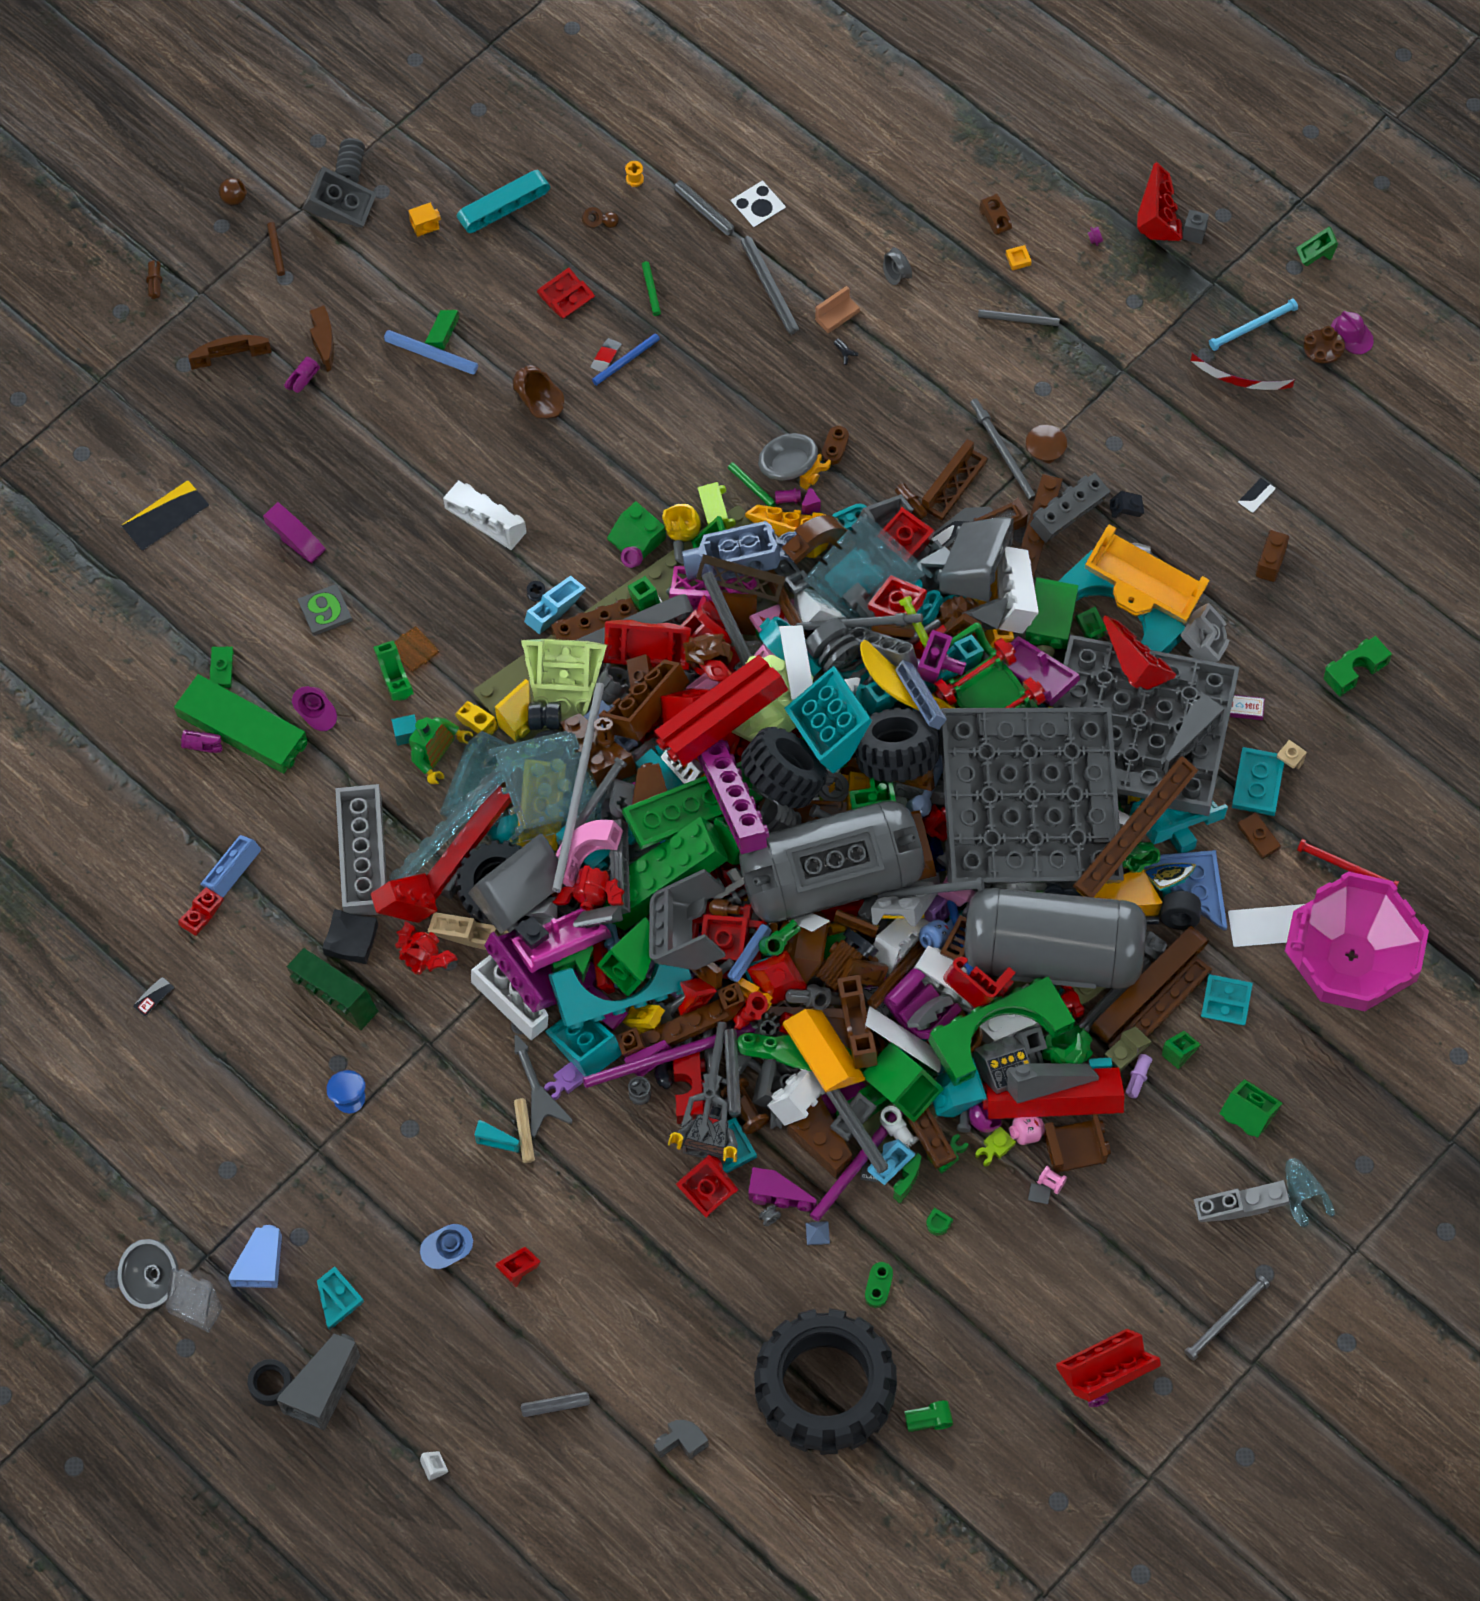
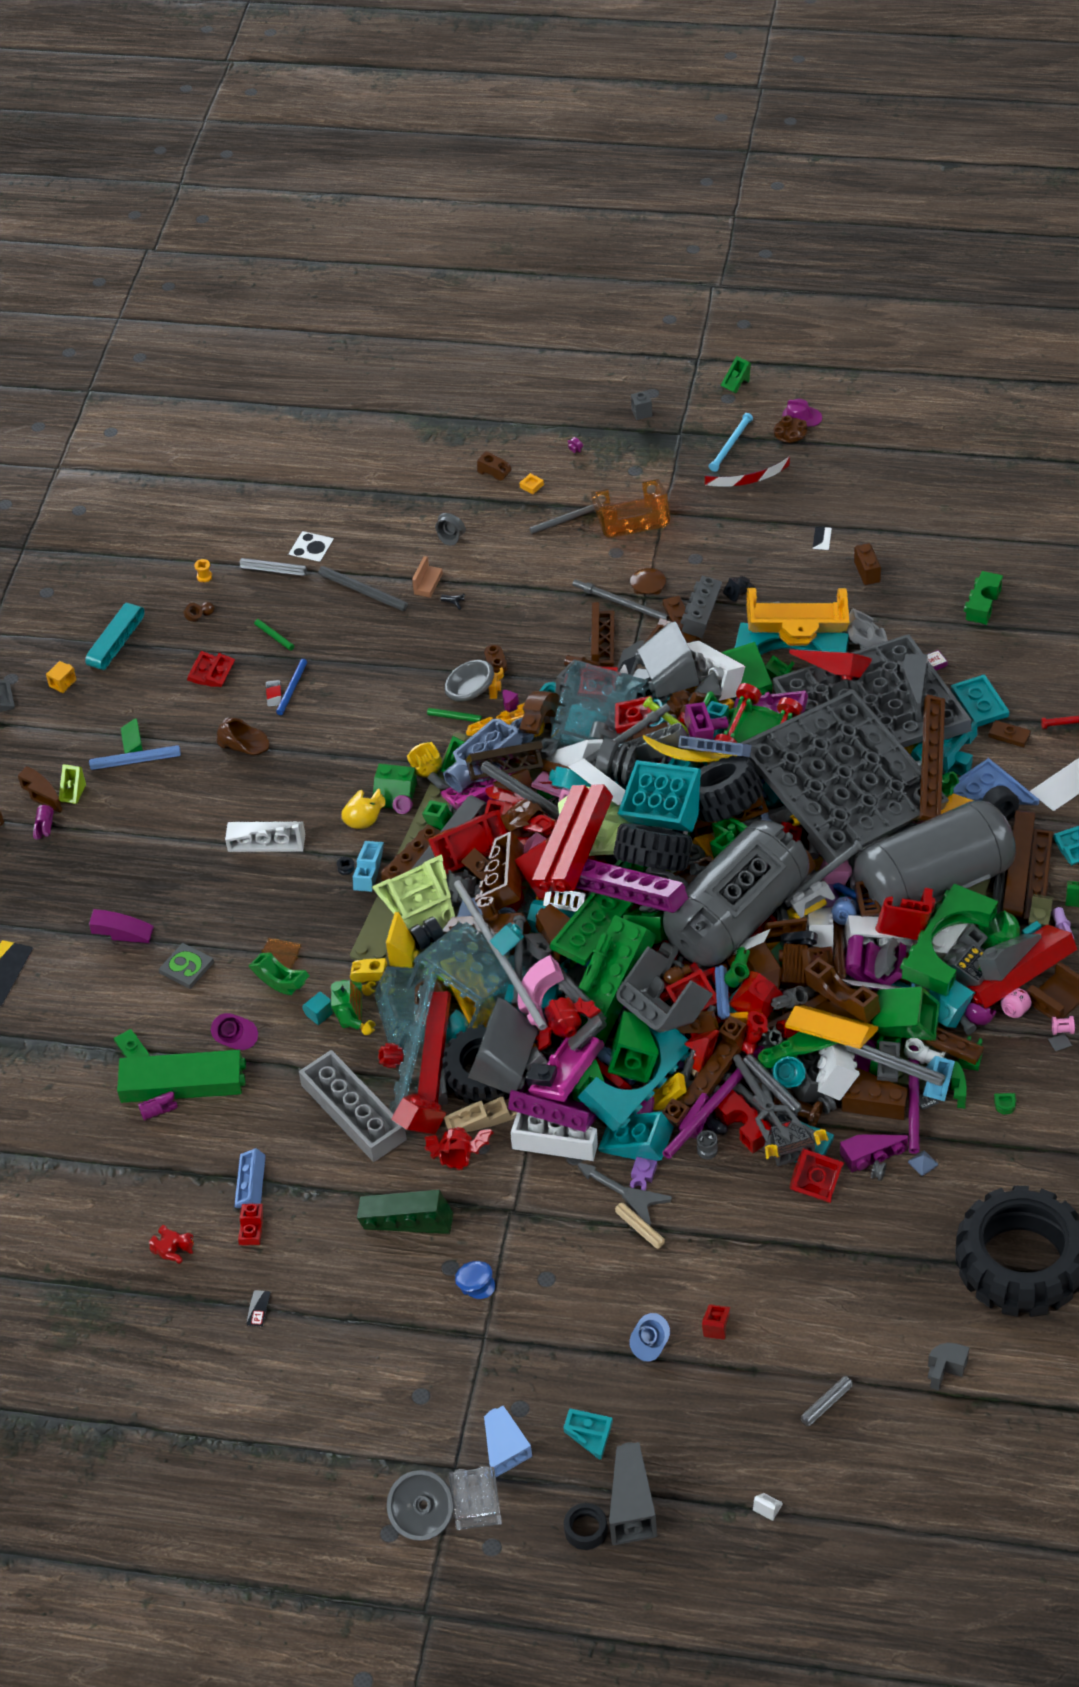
camera: 30 degrees left, 15 degrees down
(120, 887) = (169, 1244): none -> red animal
(350, 937) = (390, 1170): black brick -> none
(353, 349) = (71, 784): none -> lime slope
(430, 819) = (390, 1055): none -> red gear
(493, 1137) = (624, 1241): teal slope -> none
(586, 546) = (360, 813): none -> yellow helmet
(590, 777) = (507, 938): none -> teal brick
(650, 854) = (595, 963): none -> green axle
(714, 505) = (438, 736): lime brick -> none
(754, 1070) = (789, 1072): none -> teal hair
(788, 496) = (489, 706): magenta pin -> none
(880, 1284) = (998, 1168): green plate -> none
(996, 1144) = (1002, 1028): lime plate -> none
(1087, 352) = (633, 515): none -> clear orange windscreen
(1157, 209) = (605, 409): red wedge -> none
(1169, 875) = (974, 786): shield -> none
(1292, 755) = (990, 669): tan bracket -> none

